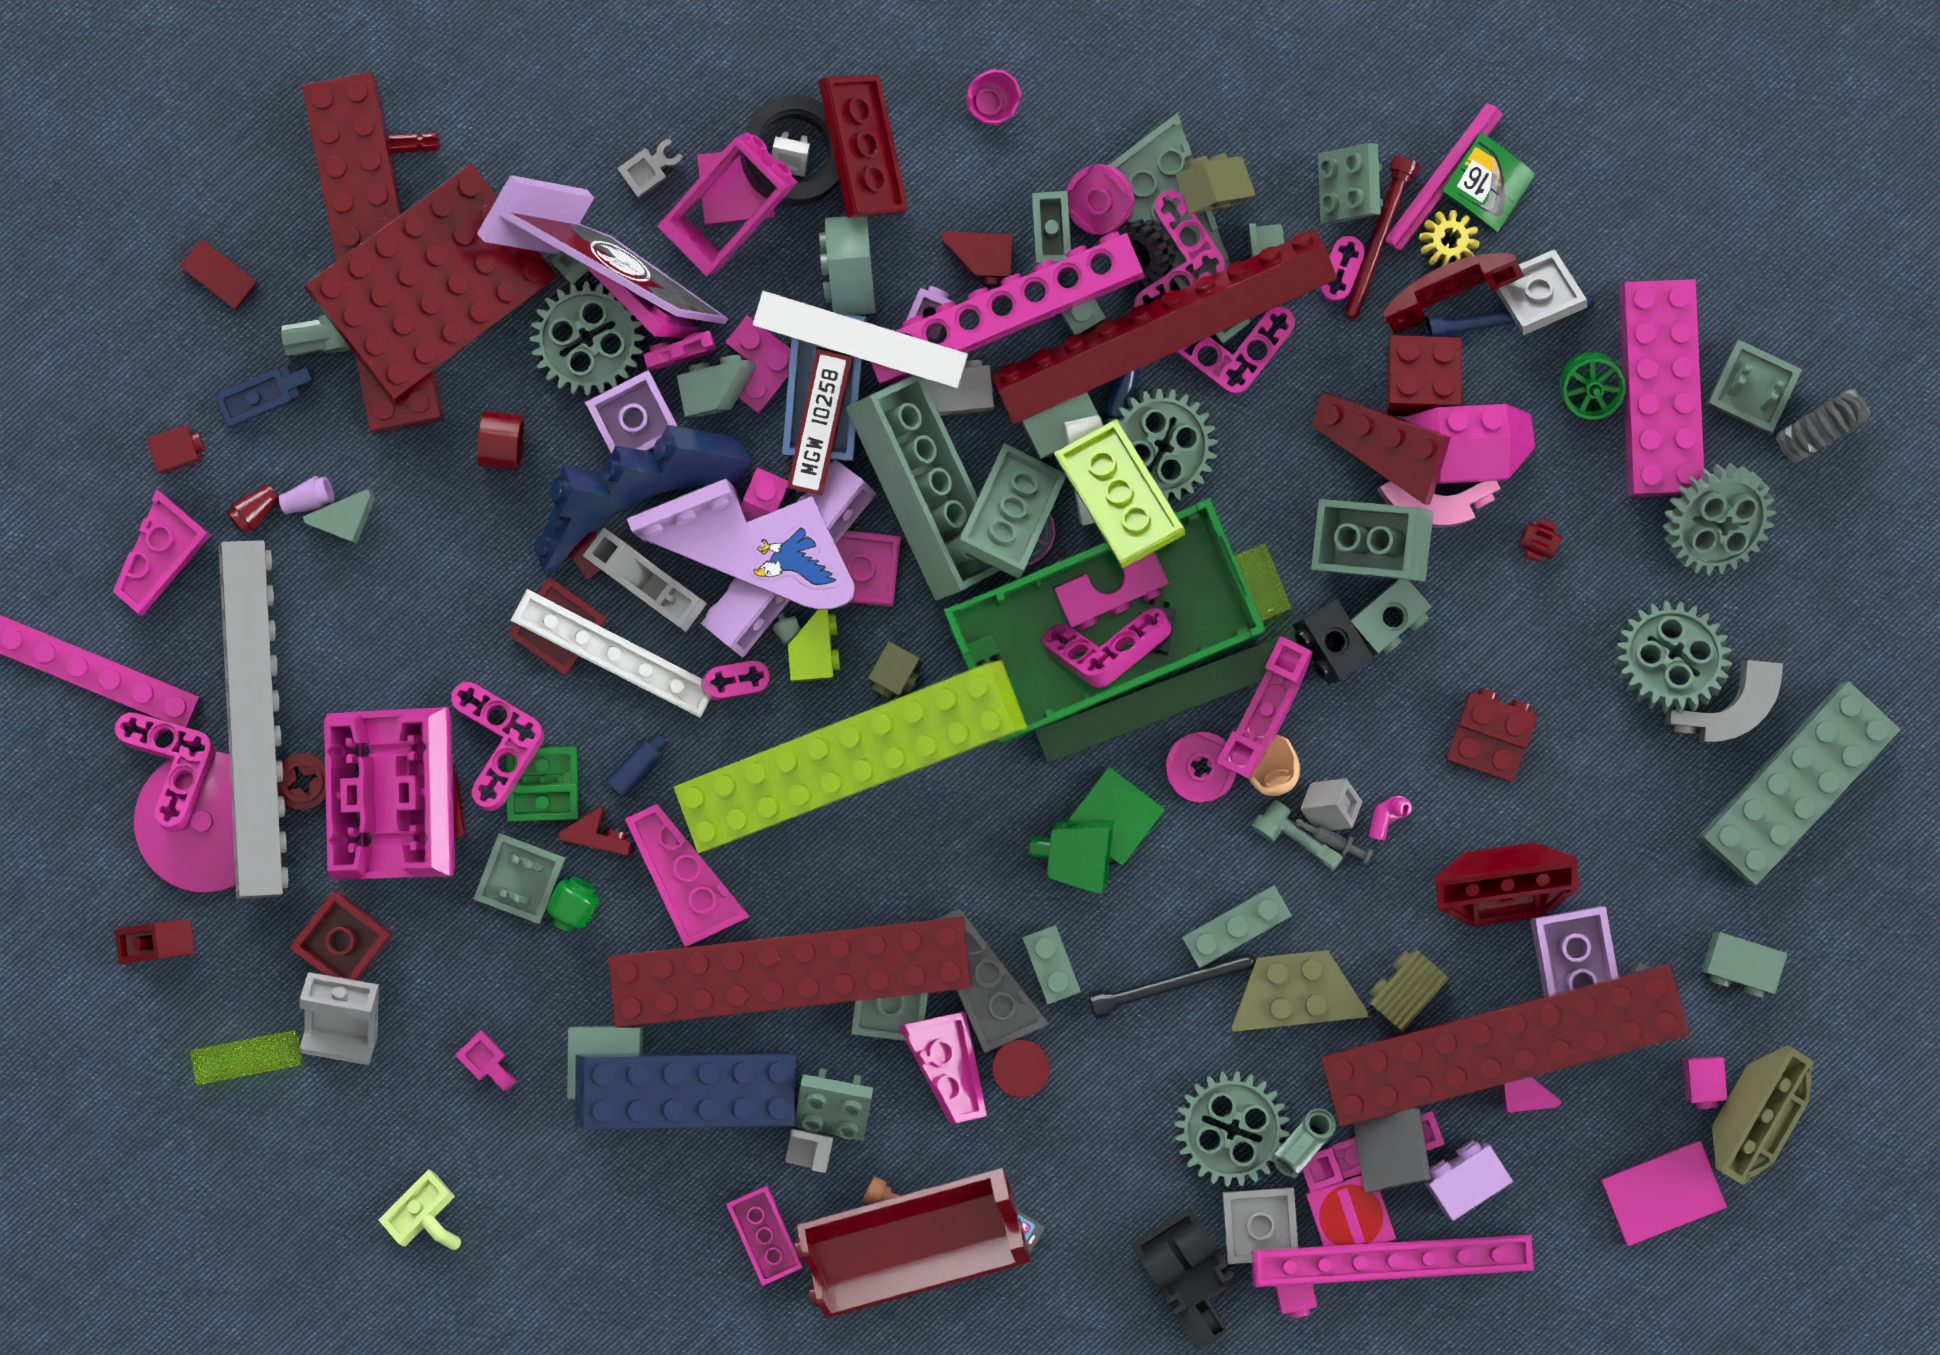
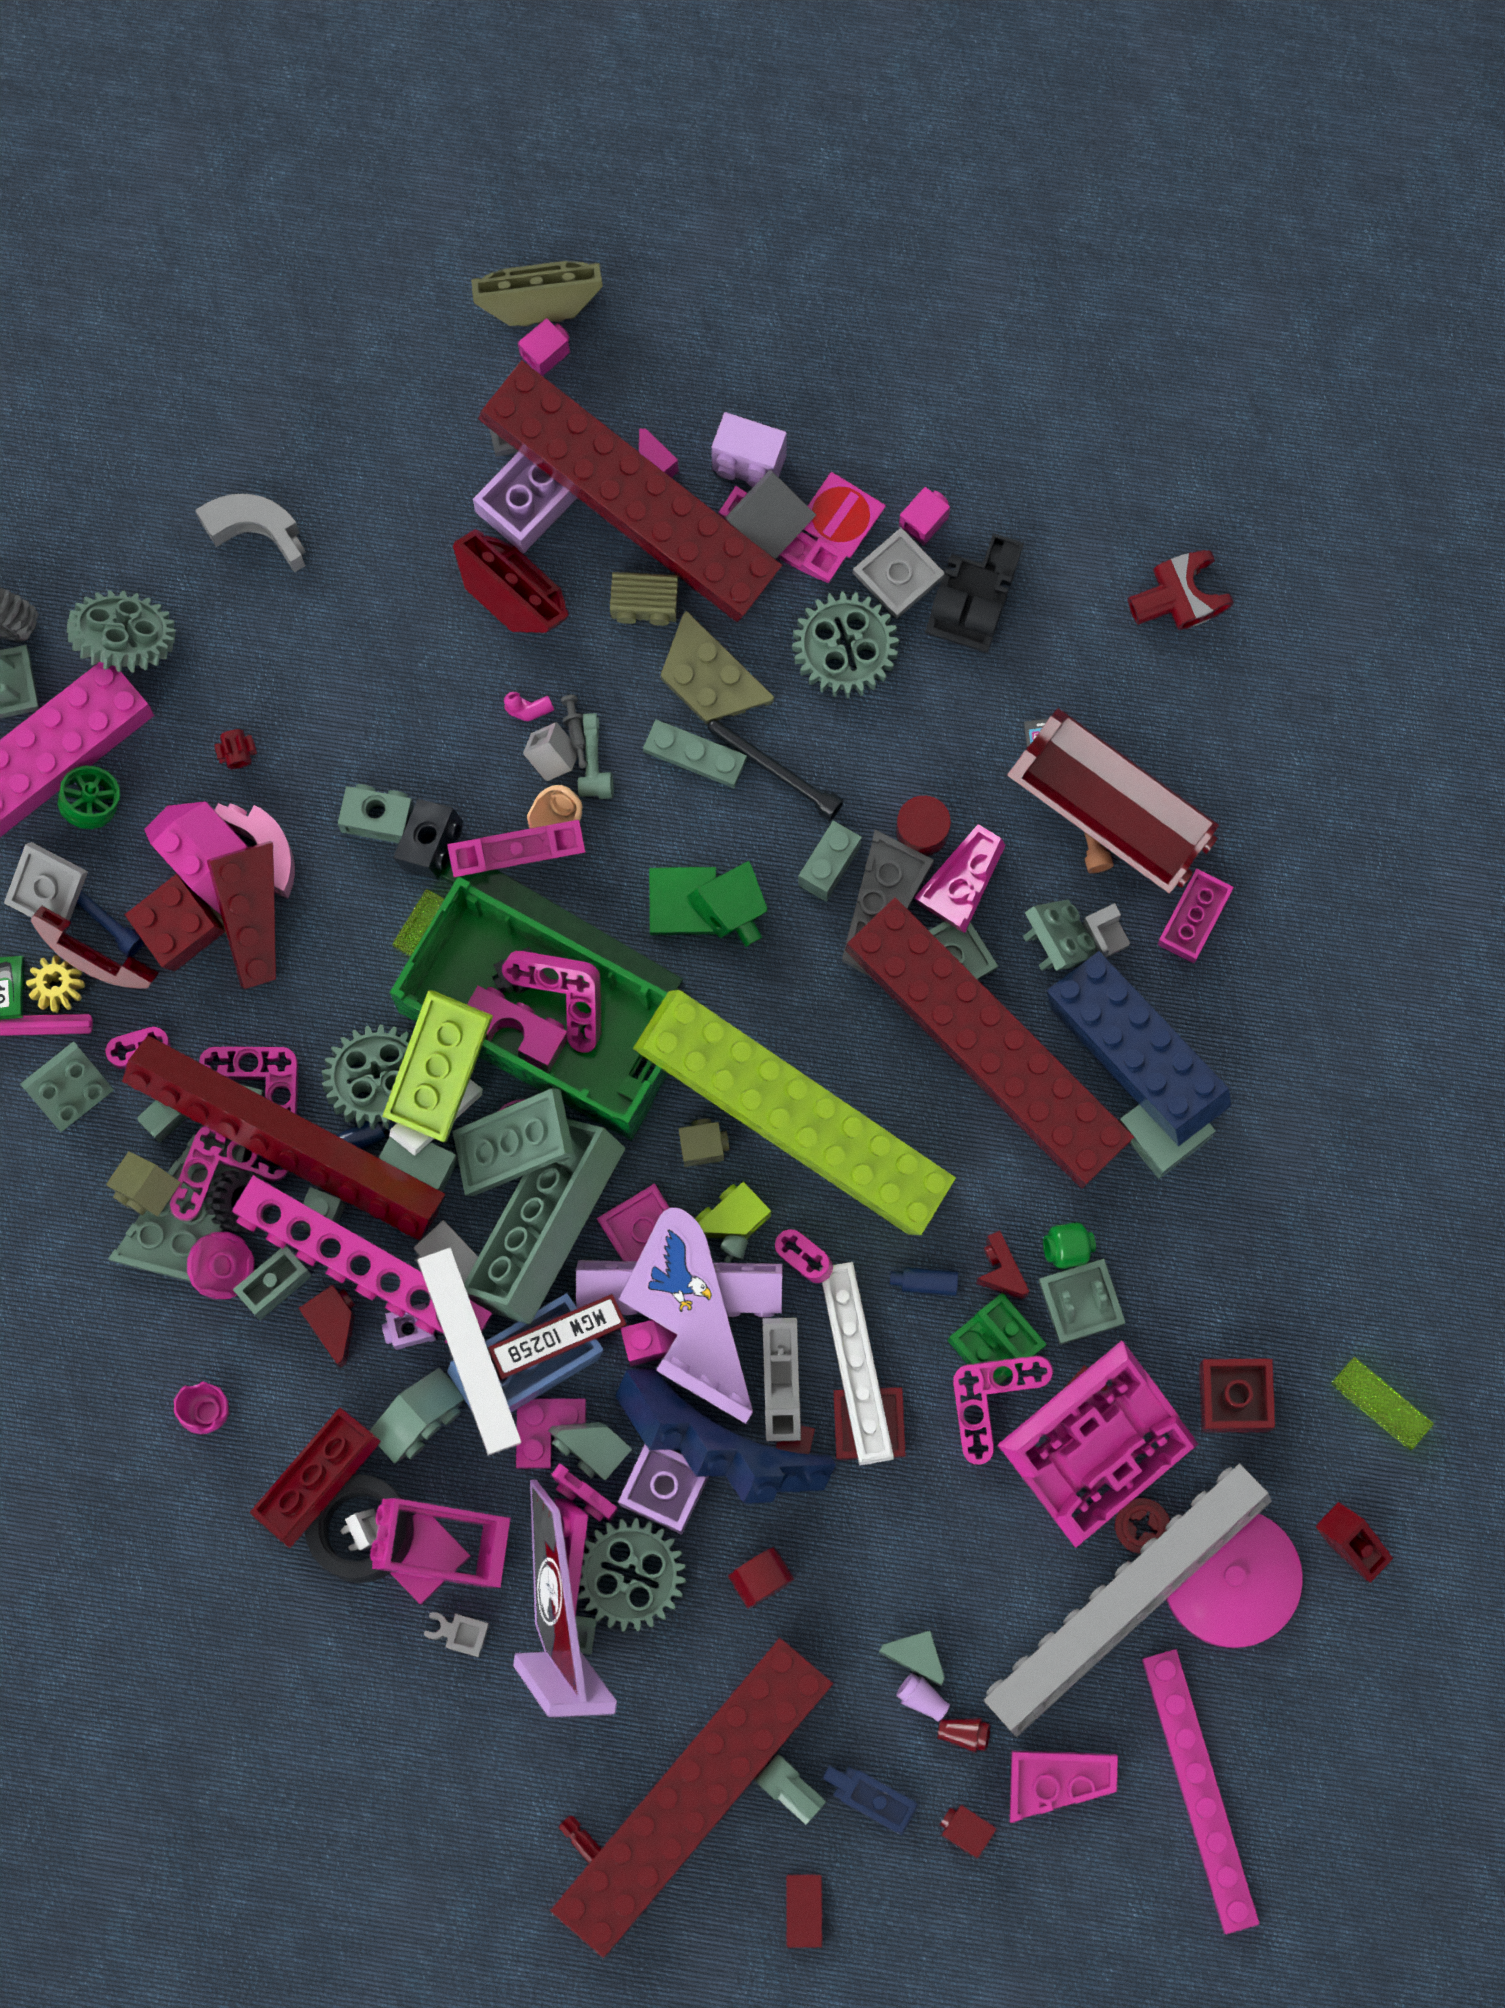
camera: 125 degrees left, 10 degrees down
(182, 763) = (1203, 1626): dark pink beam -> none
(339, 1018) = (1296, 1348): light grey panel -> none
(417, 1211) = (1387, 1182): yellowish green plate -> none
(426, 284) = (683, 1728): dark red plate -> none
(484, 1059) = (1236, 1223): dark pink plate -> none
(687, 885) = (985, 1173): dark pink wing -> none
(1182, 776) = (613, 877): dark pink plate -> none
(1304, 1143) = (815, 583): sand green piece -> none
(1372, 540) = (329, 863): sand green brick -> none
(1392, 1260) = (849, 461): dark pink tile -> none
(1402, 172) = (29, 1057): dark red piece -> none
(1491, 734) = (408, 678): dark red plate -> none
(1663, 1193) = (648, 318): dark pink tile -> none
(1692, 635) = (277, 589): sand green gear -> none
(1743, 963) = (437, 381): sand green brick -> none
(1798, 783) = (275, 438): sand green brick -> none

